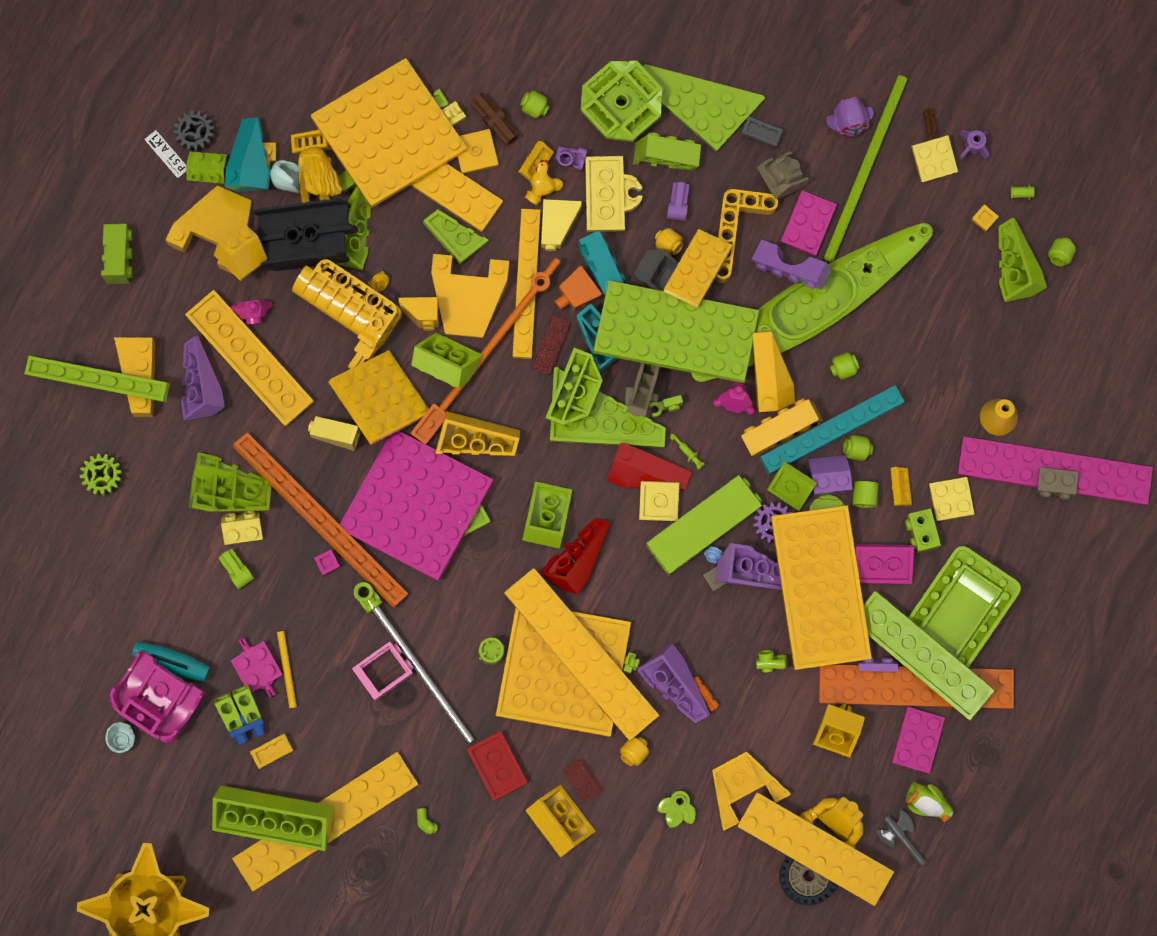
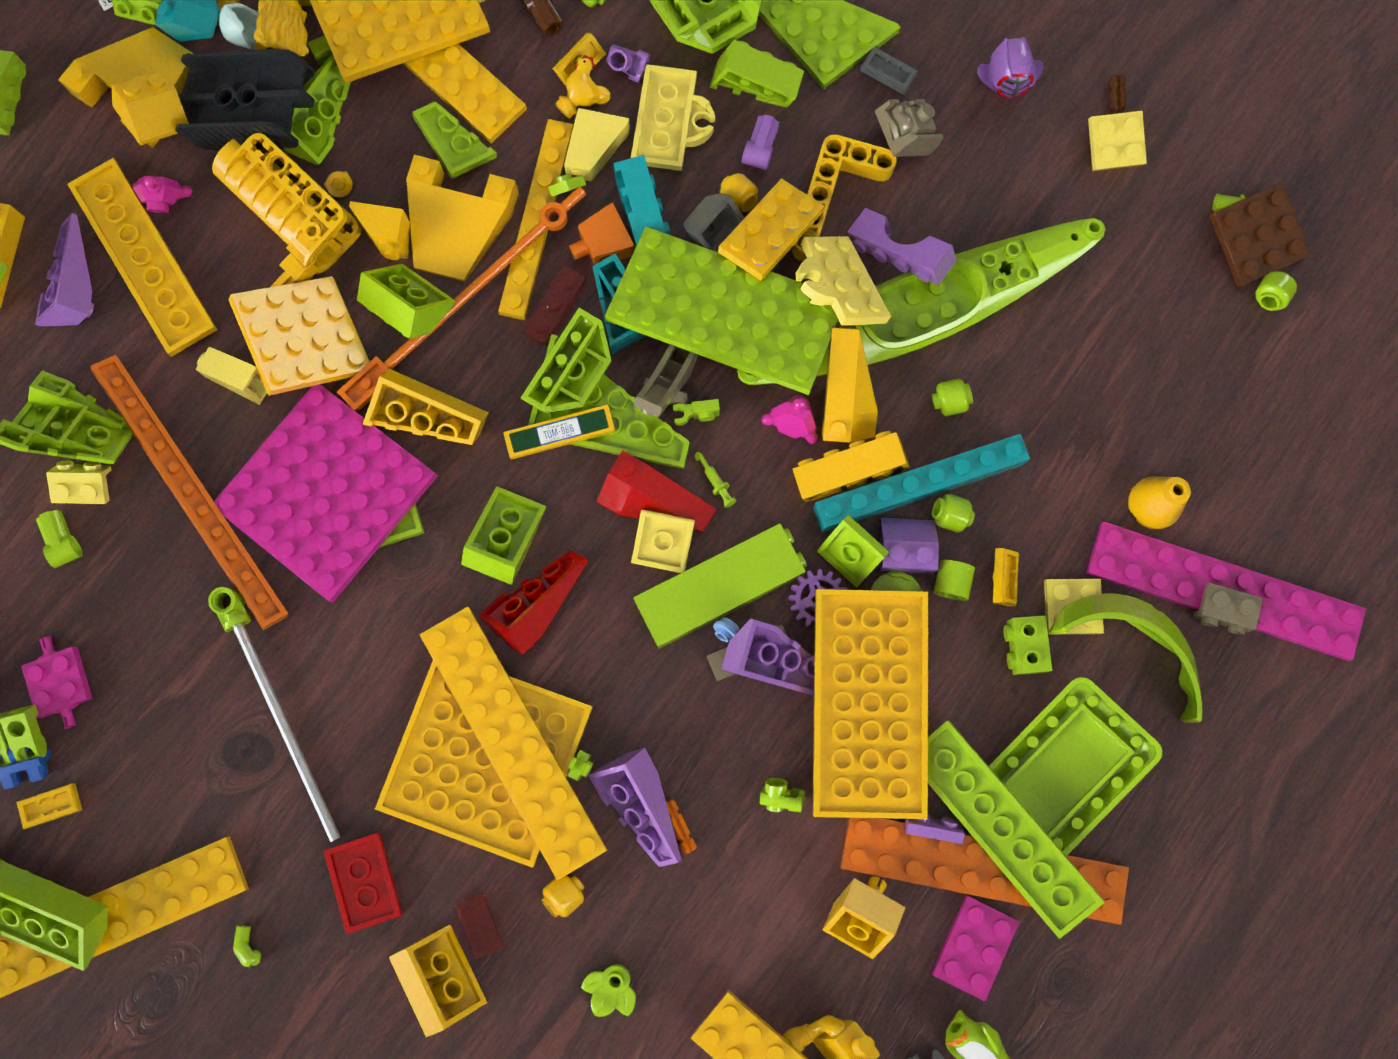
camera: 10 degrees right, 0 degrees up
(286, 669) = (98, 692): yellow piece -> none
(327, 562) = (185, 551): dark pink plate -> none
(396, 651) = (203, 729): bright pink window -> none
(479, 152) = (506, 40): yellow plate -> none
(491, 651) = (387, 715): lime piece -> none
(545, 256) = (565, 184): none -> lime plate
(573, 436) = (559, 432): none -> tile
(738, 779) = (705, 963): yellow wing -> none
(752, 297) = (840, 281): none -> light yellow plate
(808, 223) = (932, 199): dark pink plate -> none
(865, 169) = (1021, 139): lime axle -> none
(885, 563) = (968, 682): dark pink plate -> none
(972, 146) = (1175, 128): medium lavender brick -> none
(985, 218) = (1175, 230): yellow plate -> none
(1003, 500) = (1149, 621): none -> lime windscreen
(1020, 269) = (1213, 302): lime wedge -> none
(1045, 212) = (1260, 234): none -> reddish brown plate

